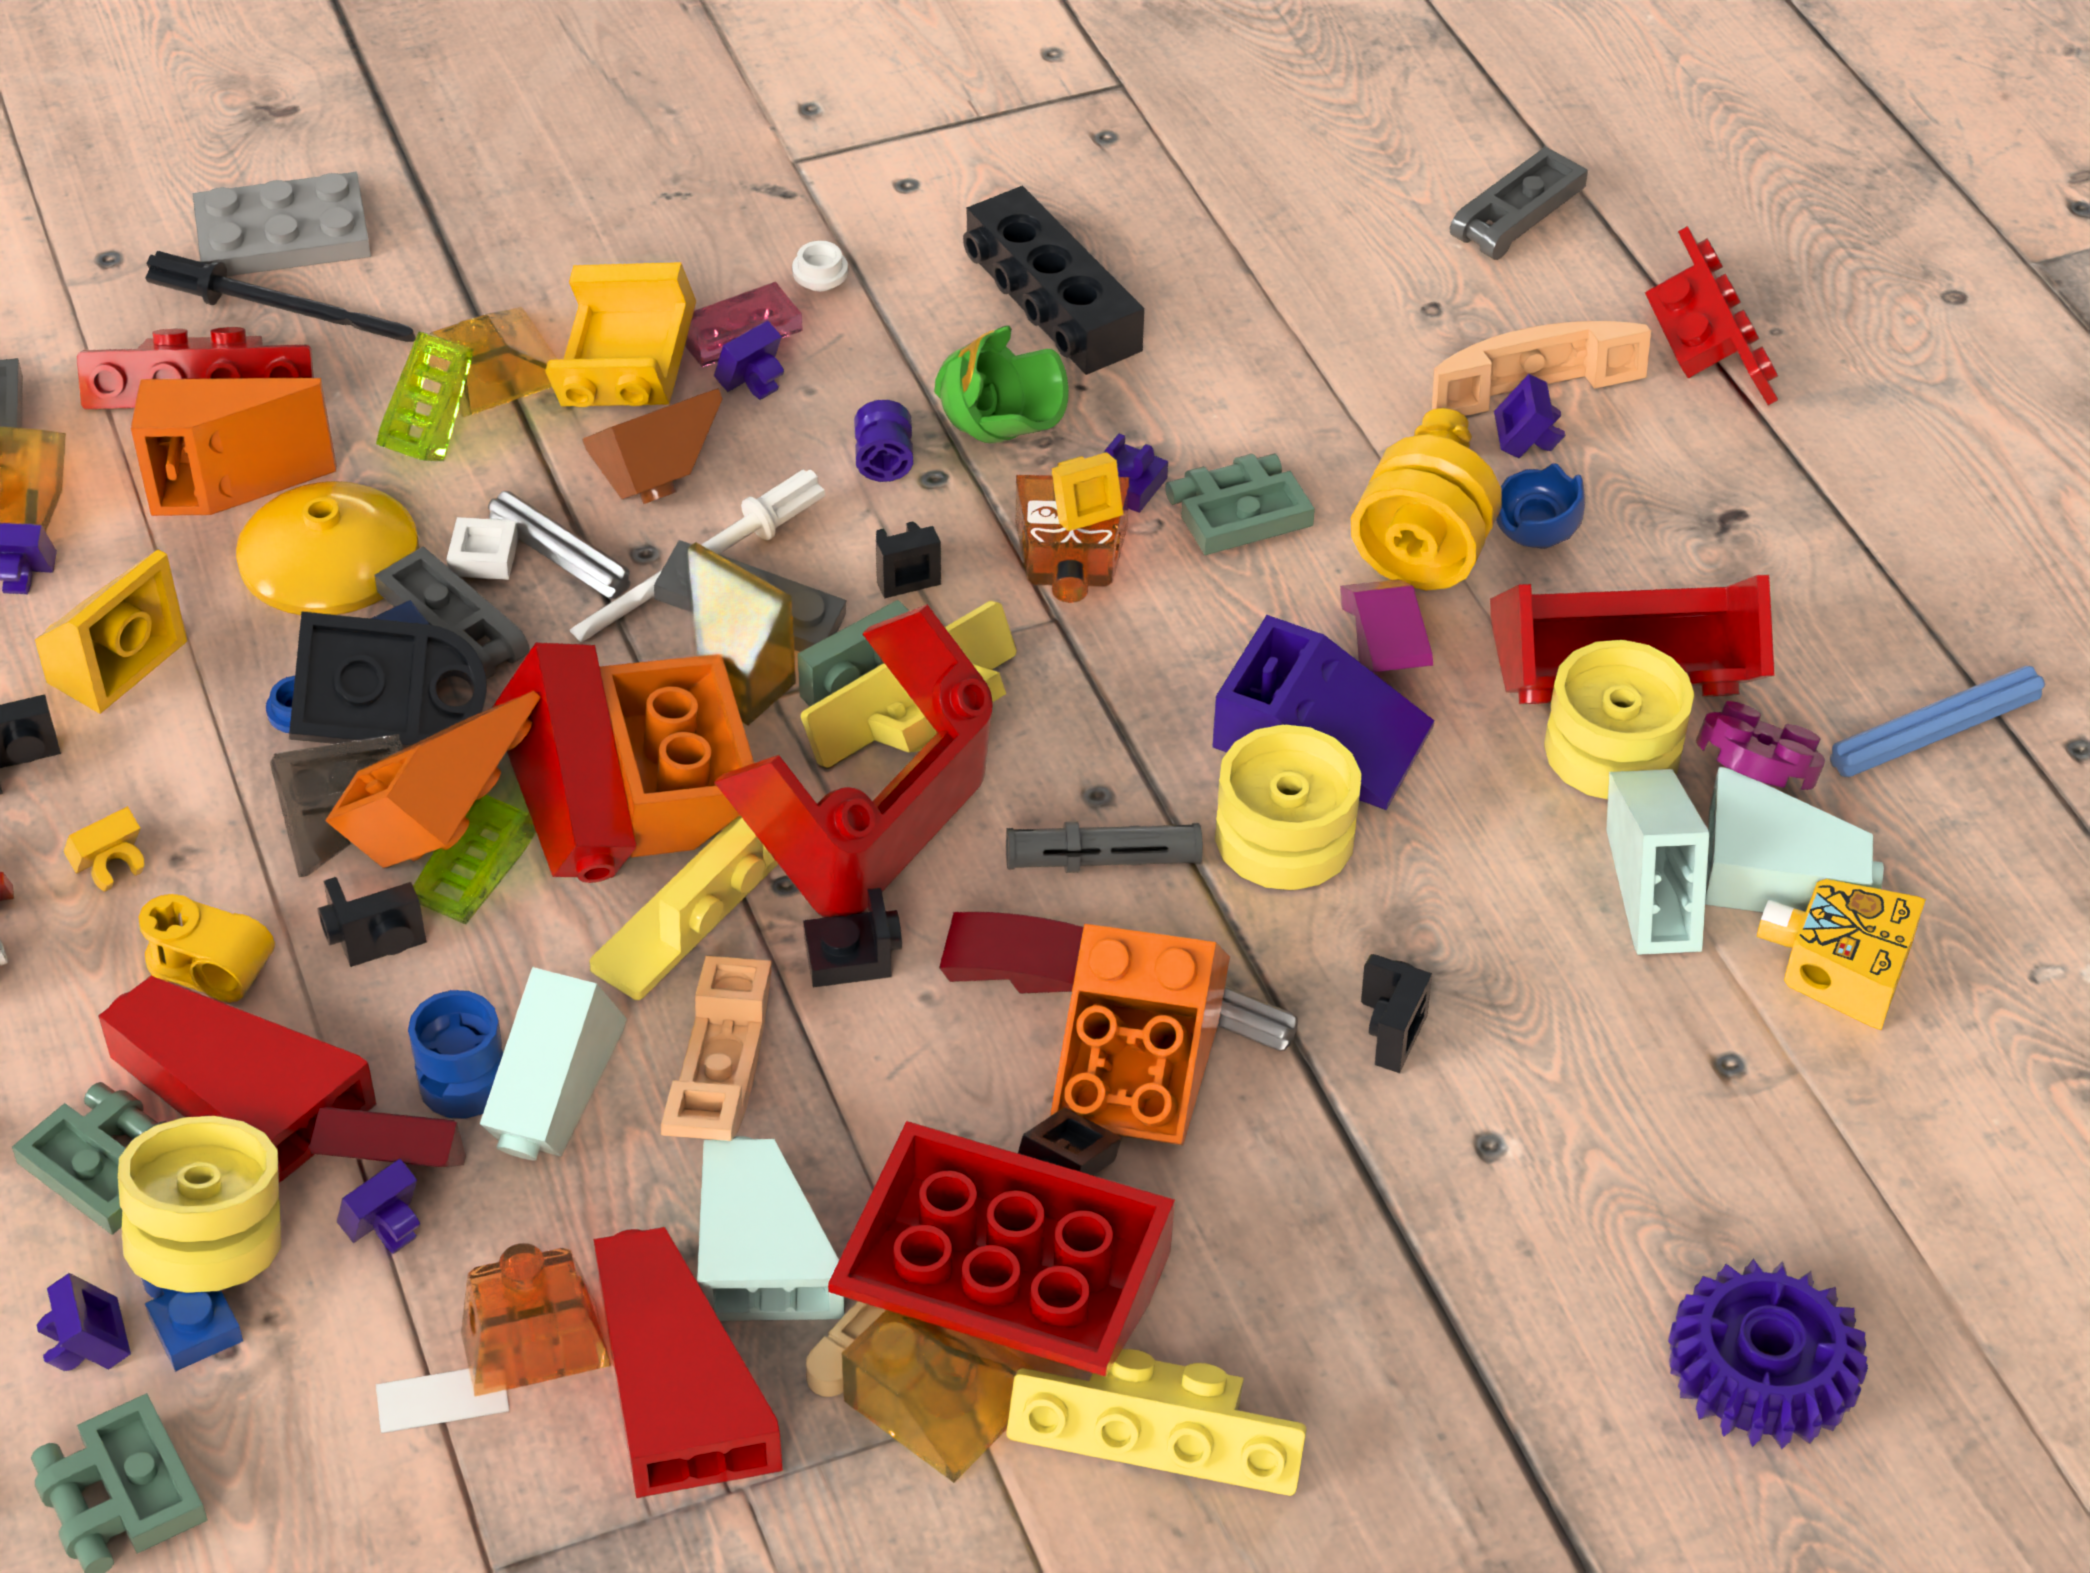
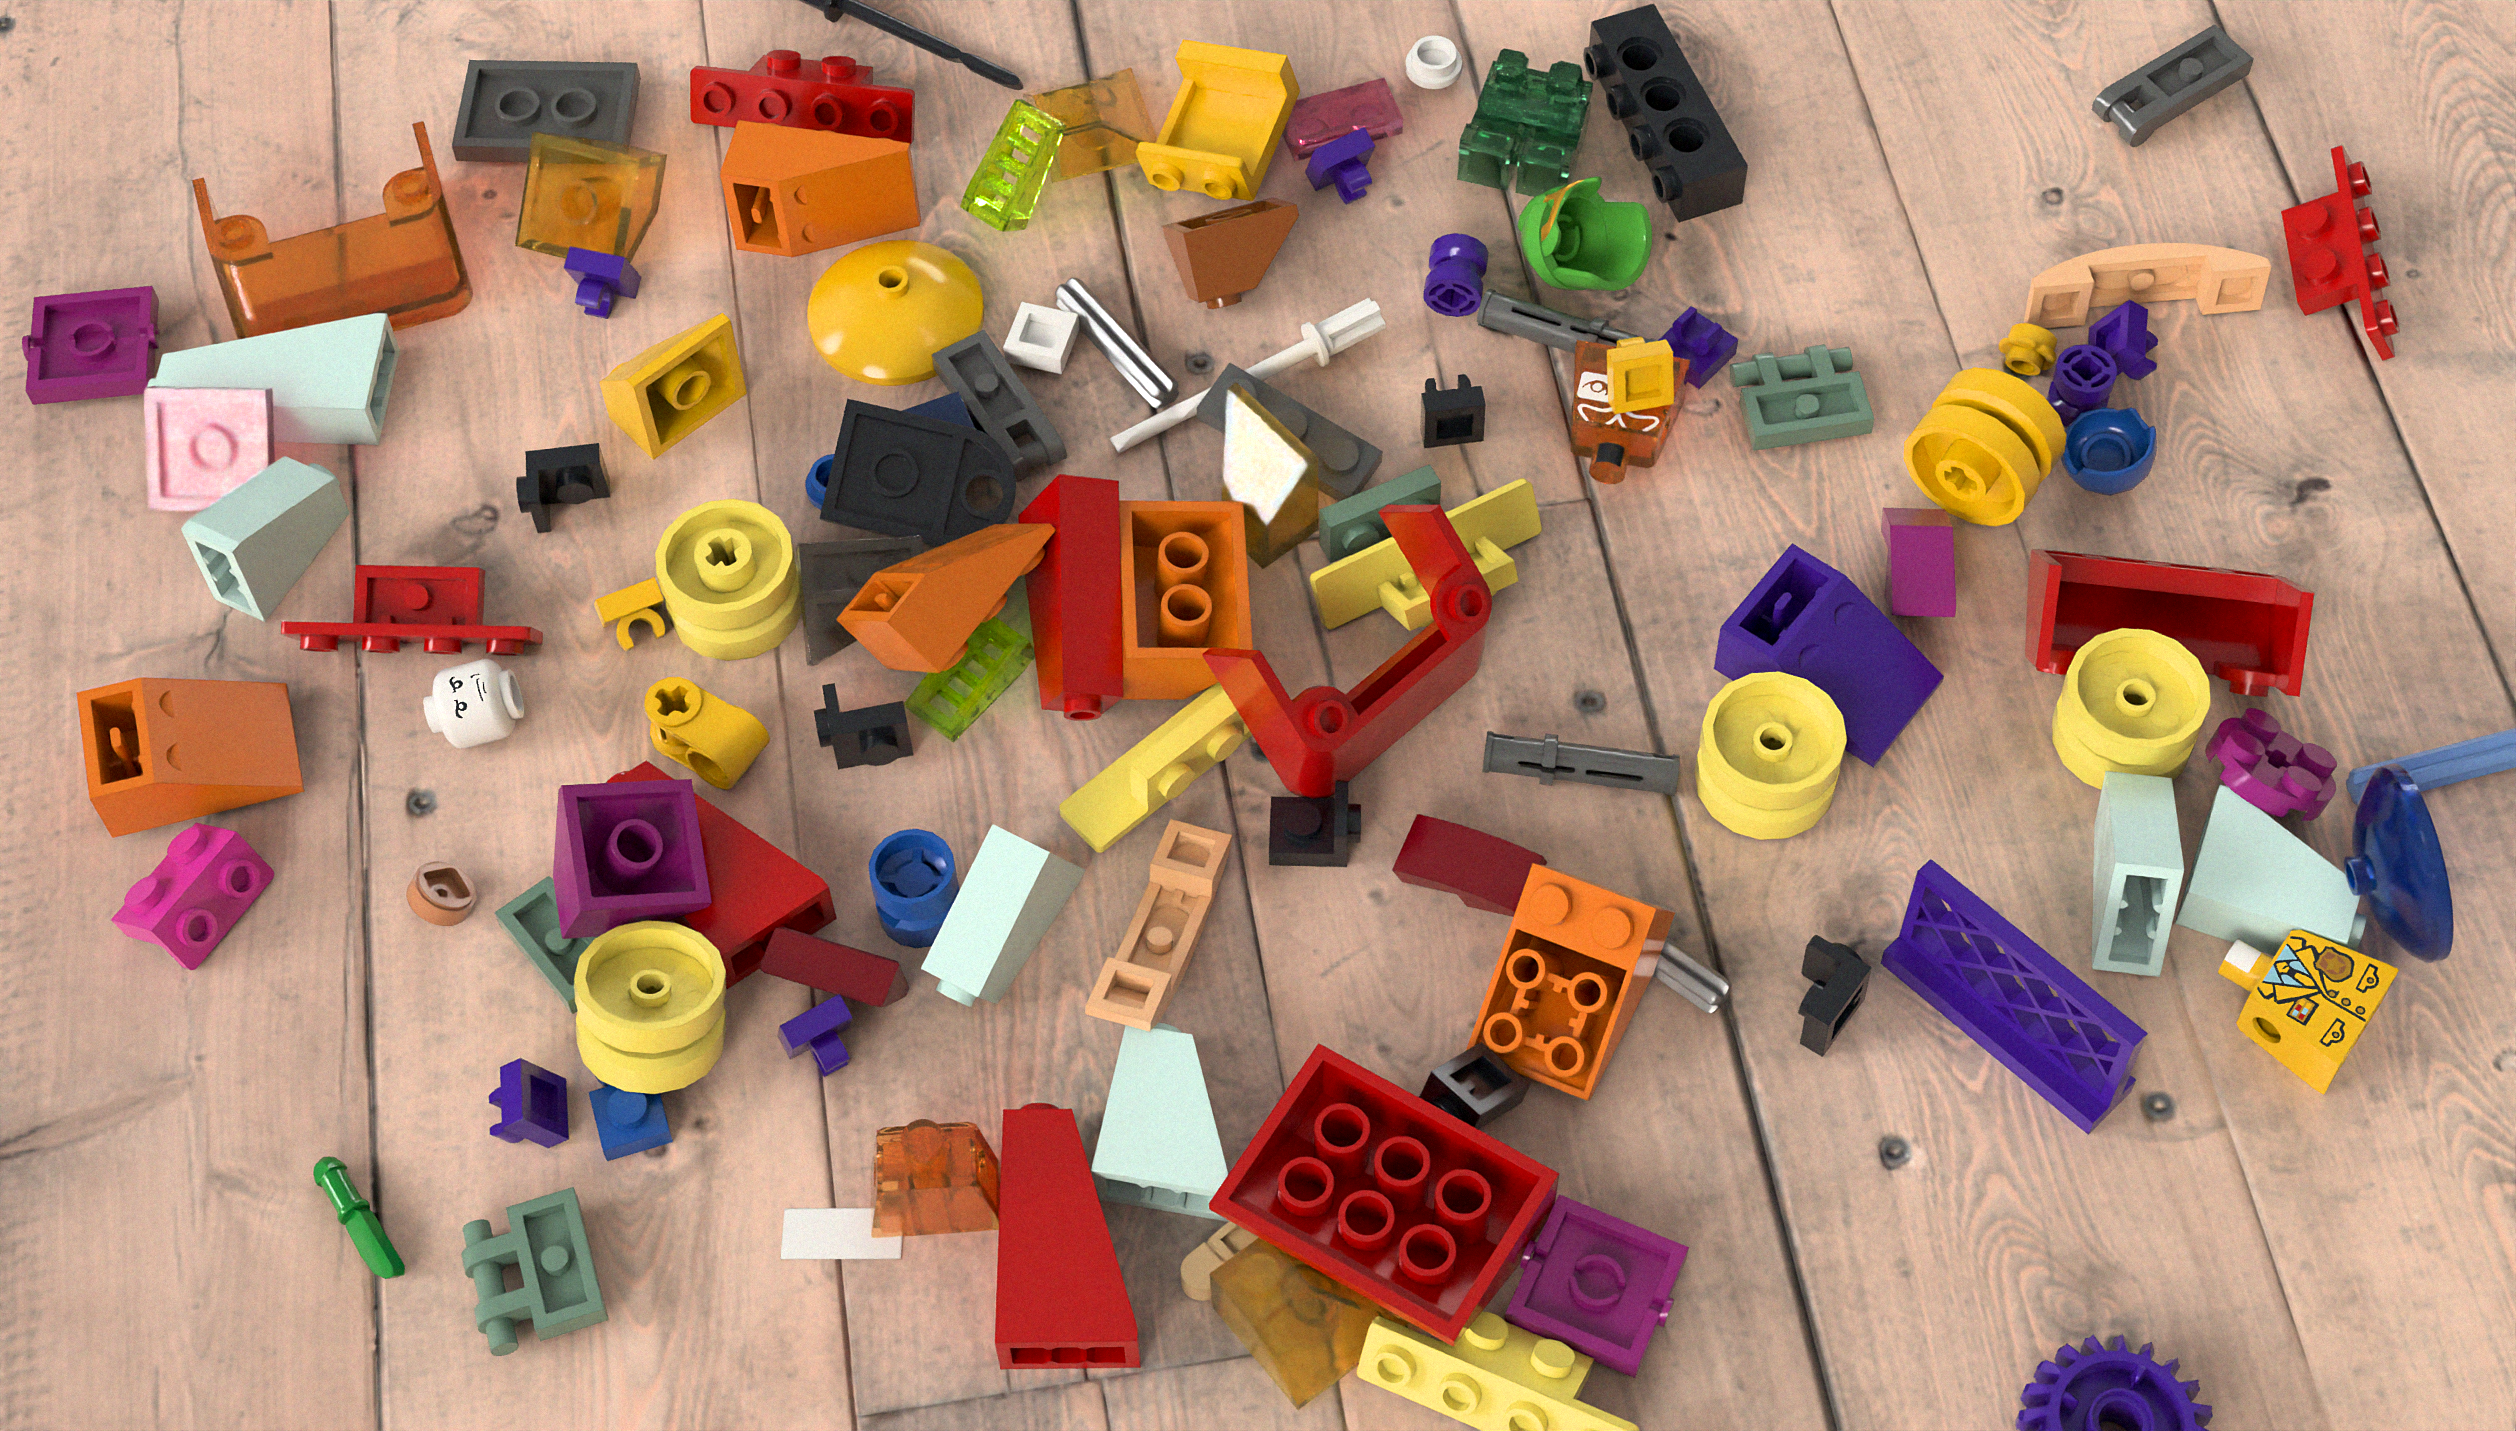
camera: 15 degrees right, 10 degrees up
(149, 1058) = (627, 855): none -> magenta slope
(206, 802) = (729, 579): none -> light yellow wheel
(922, 301) = (1528, 123): none -> clear green hips
(973, 471) = (1545, 324): none -> dark grey pin
(1231, 1308) = (1597, 1285): none -> magenta plate
(1503, 445) = (2081, 381): none -> dark purple wheel
(1559, 999) = (2018, 1026): none -> dark purple fence
(1908, 804) = (2401, 865): none -> clear blue dish

